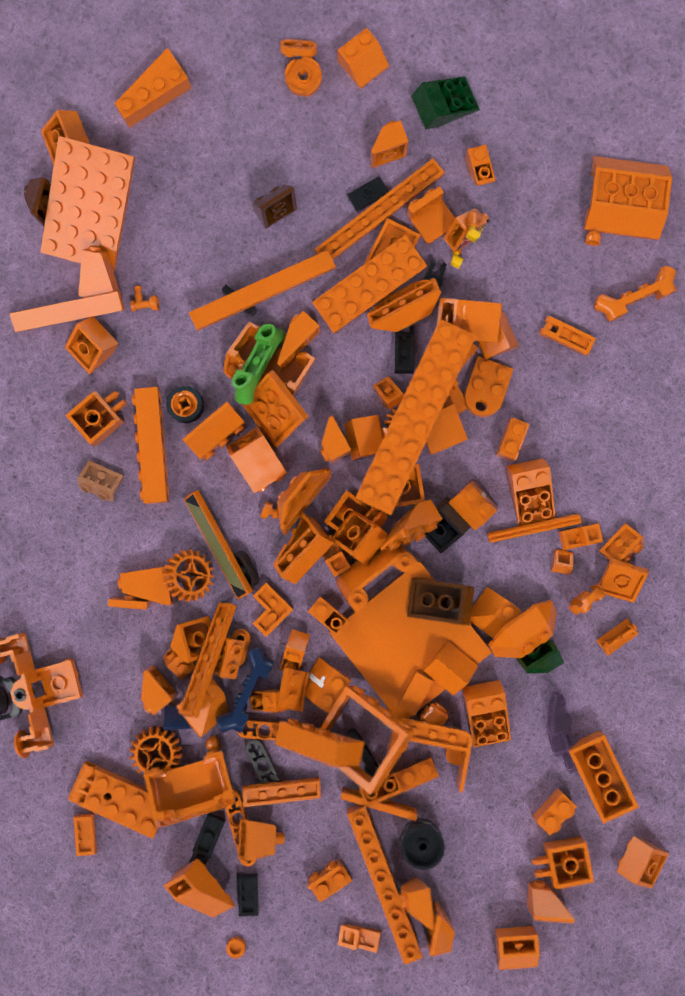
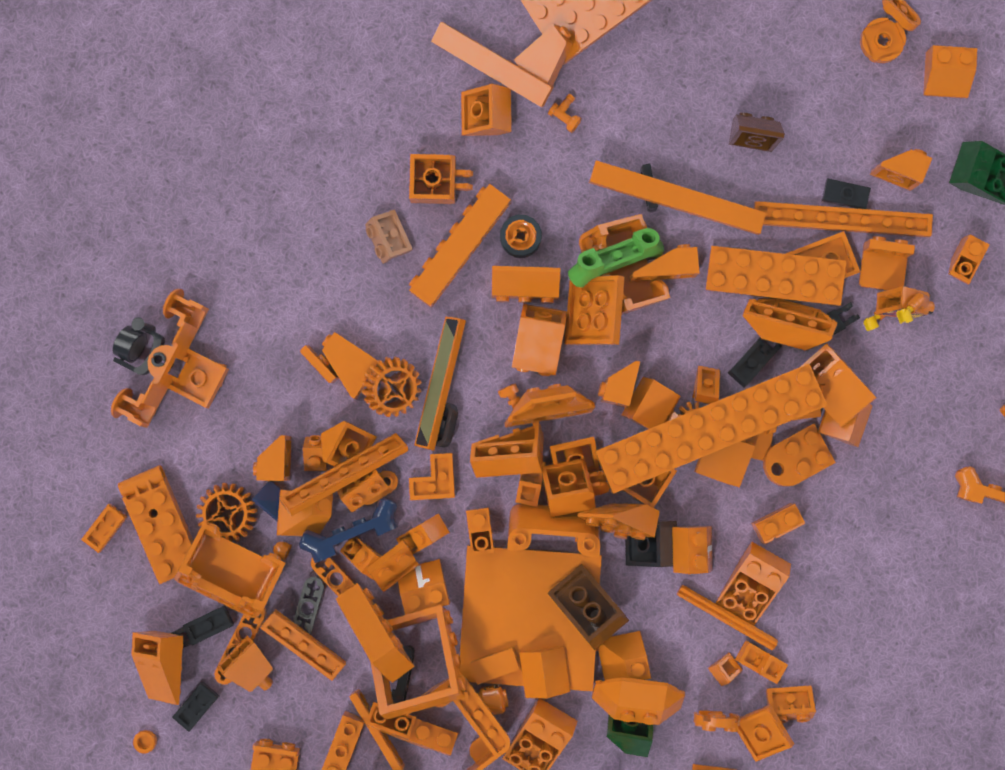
camera: 45 degrees right, 0 degrees up
(567, 336) = (909, 477): orange plate -> none

